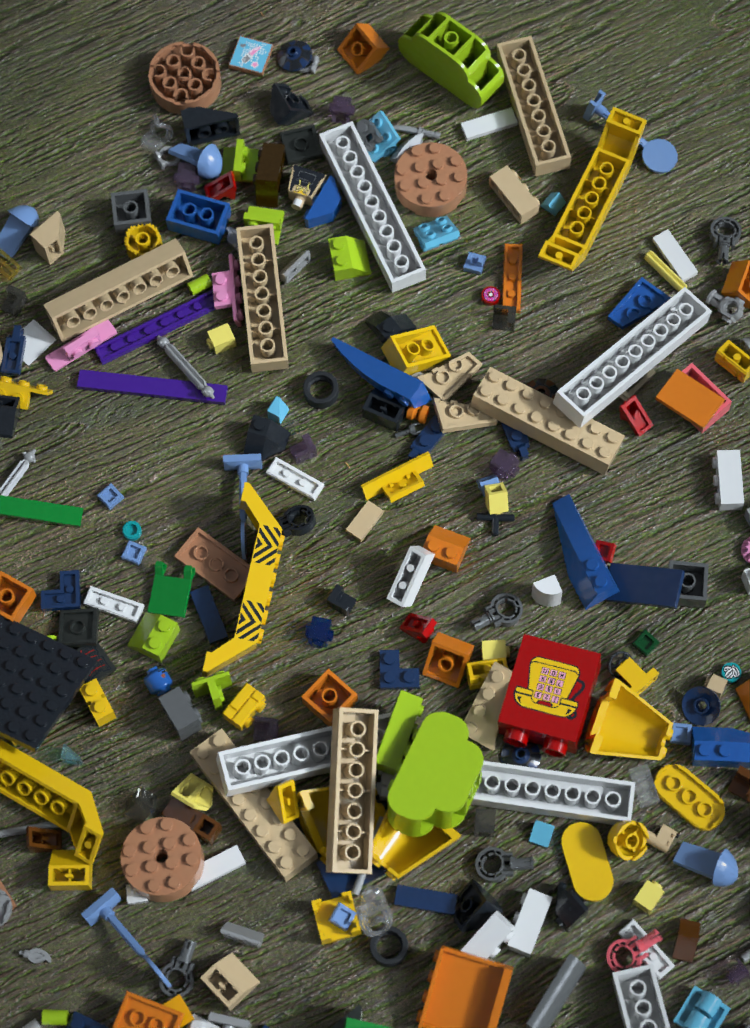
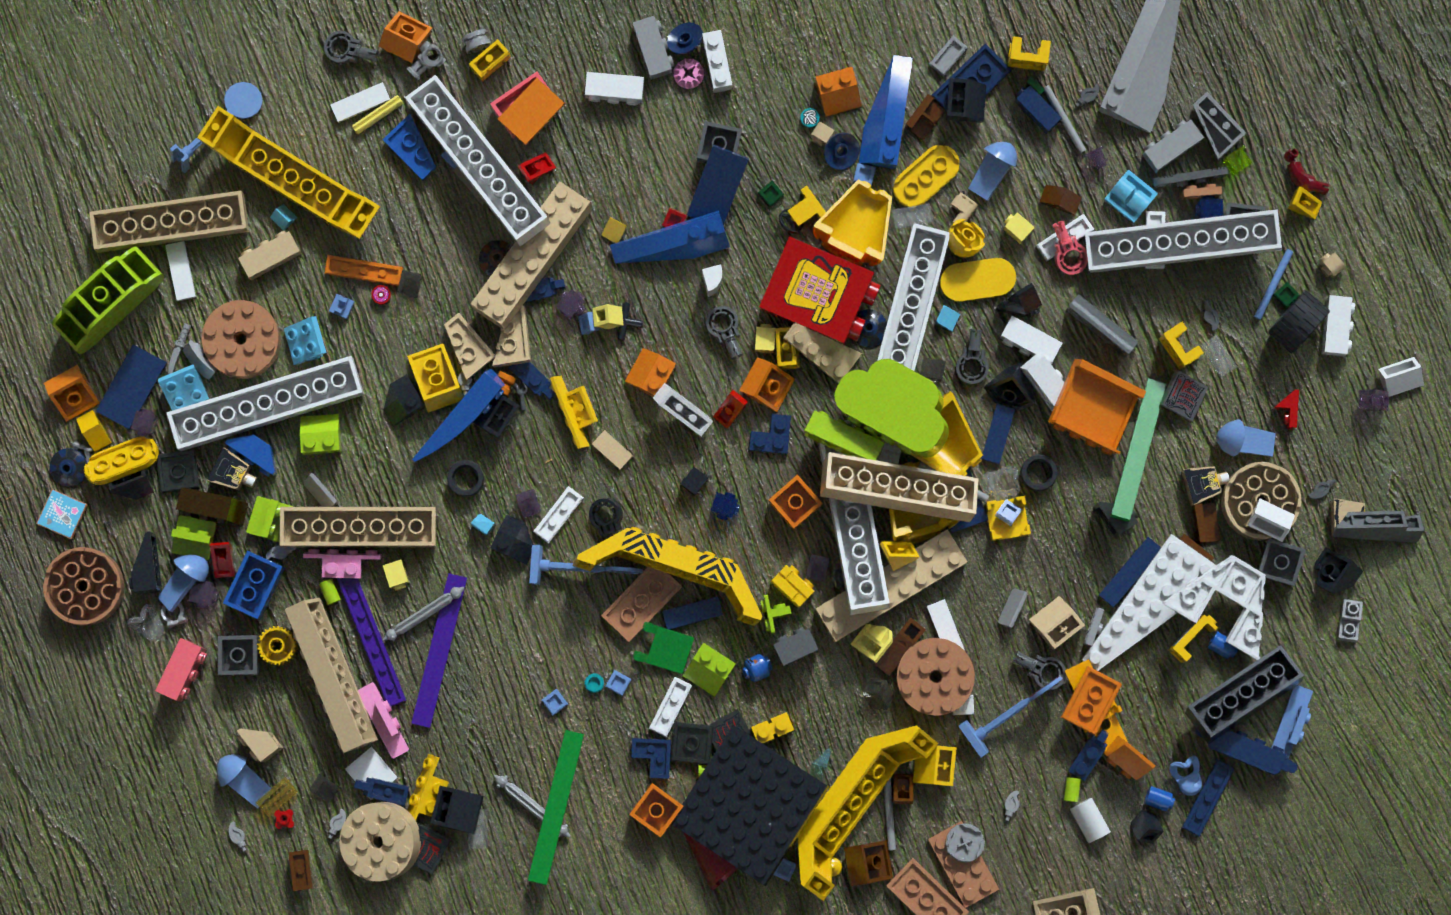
camera: 90 degrees left, 15 degrees up
(113, 164) = (181, 670): none -> coral brick
(304, 94) = (121, 460): none -> yellow tile
(329, 71) = (93, 431): none -> yellow slope
(367, 129) = (175, 399): dark grey plate -> none
(370, 908) = (1003, 487): clear piece -> none
(374, 96) = (131, 386): none -> dark blue tile
(585, 497) = (614, 230): none -> yellow slope

